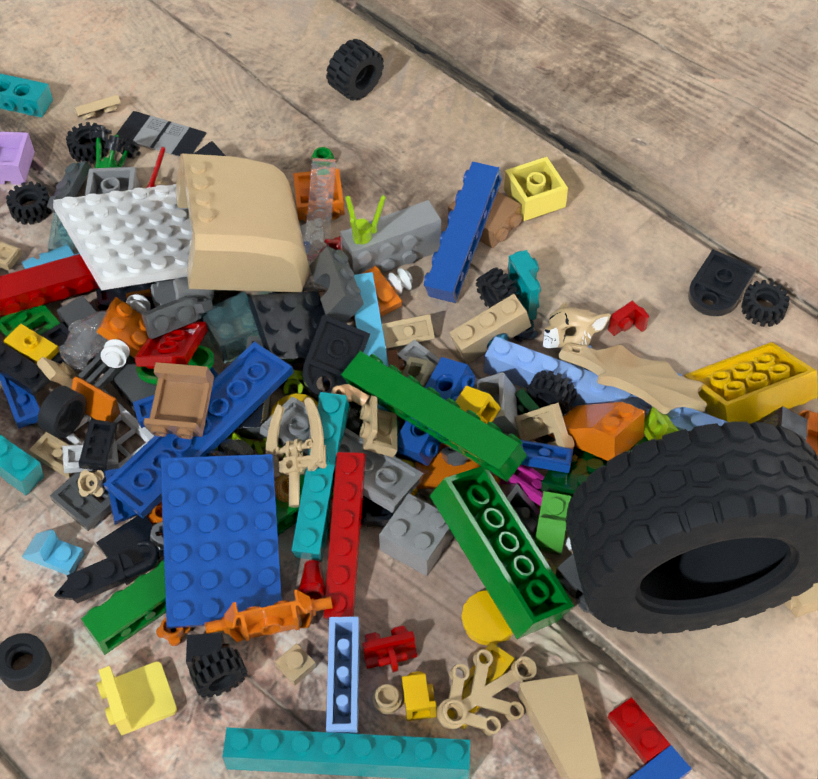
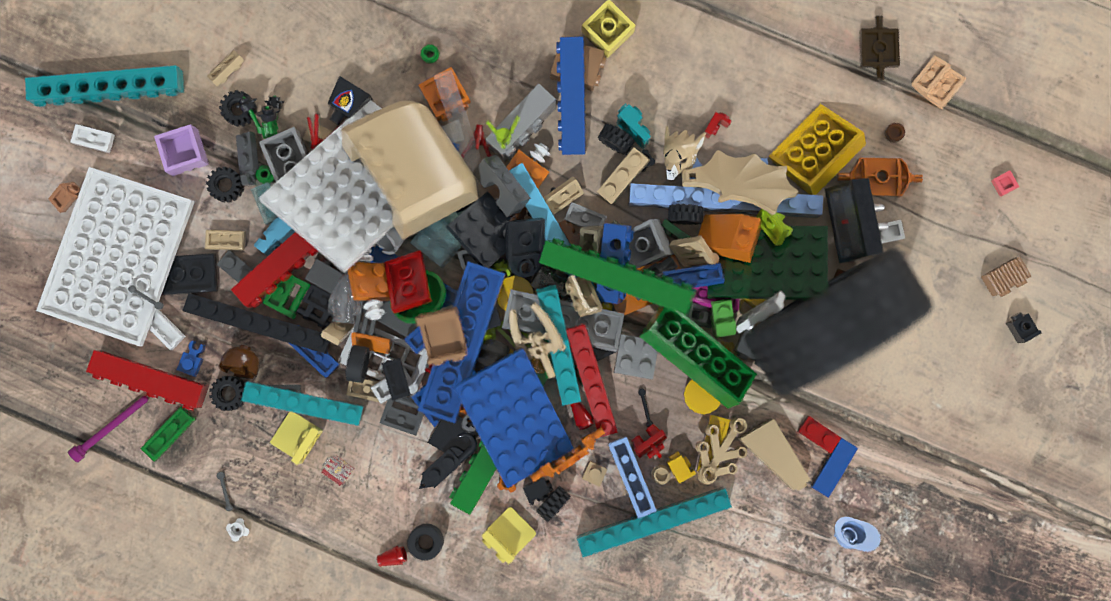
camera: 20 degrees left, 30 degrees up
(31, 344) = (302, 314): yellow plate -> none
(53, 553) = (402, 460): medium azure slope -> none
(84, 483) = (405, 411): tan plate -> none
(159, 133) = (289, 74): sticker -> none
(175, 315) = (398, 258): dark grey hinge -> none
(353, 394) = (553, 277): light nougat arm -> none
(407, 586) = (642, 392): none -> black hinge
(478, 402) = (644, 256): yellow brick -> none
(722, 282) = (770, 64): black plate -> none
(769, 293) = (815, 64): black tyre -> none

